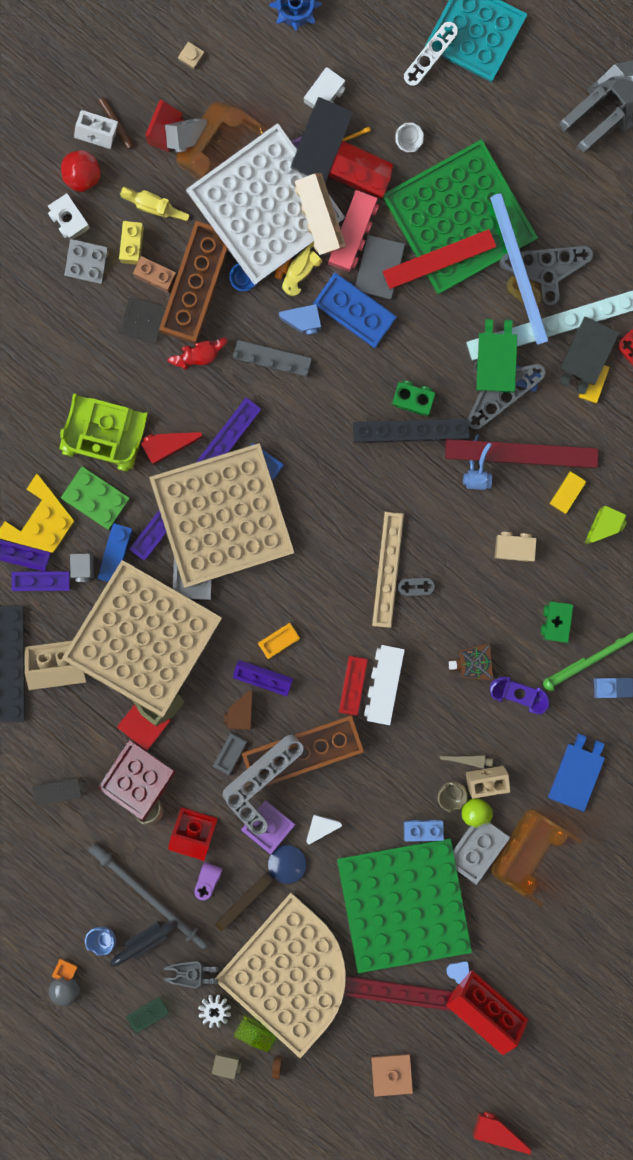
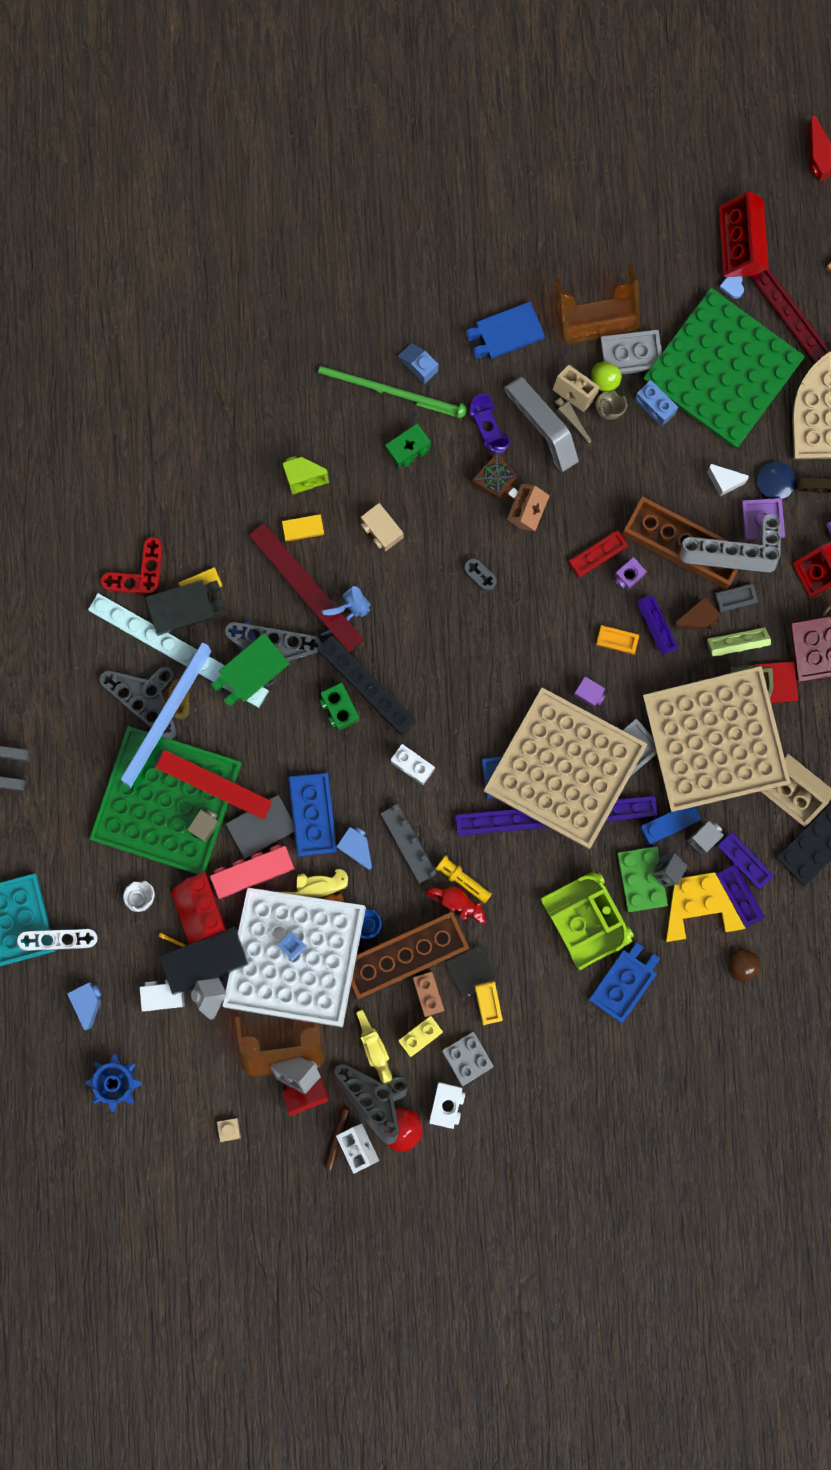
camera: 130 degrees left, 5 degrees down
(35, 417) = (624, 983): none -> blue tile
(83, 520) = (669, 870): none -> dark grey brick
(109, 168) = (368, 1092): none -> dark grey beam
(110, 311) = (488, 1002): none -> yellow tile
(165, 445) = (551, 862): red slope -> none
(196, 724) = (738, 642): none -> yellowish green plate
(219, 371) = (455, 874): none -> yellow pin
(259, 584) = (590, 692): none -> medium lavender brick
(274, 207) = (291, 945): none -> medium blue plate
(293, 120) = (208, 996): none -> light grey slope
(320, 214) = (264, 906): brick -> none
(322, 700) = (634, 567): none -> medium lavender brick
(324, 411) = (412, 764): none -> white brick
(368, 34) = (86, 1003): none -> medium blue slope
(385, 684) = (576, 529): white brick -> none
(388, 569) = (487, 608): tan tile -> none
(416, 225) = (204, 825): none -> dark tan brick
(432, 665) = (528, 507): none -> nougat brick
(485, 733) = (545, 421): none -> light grey beam

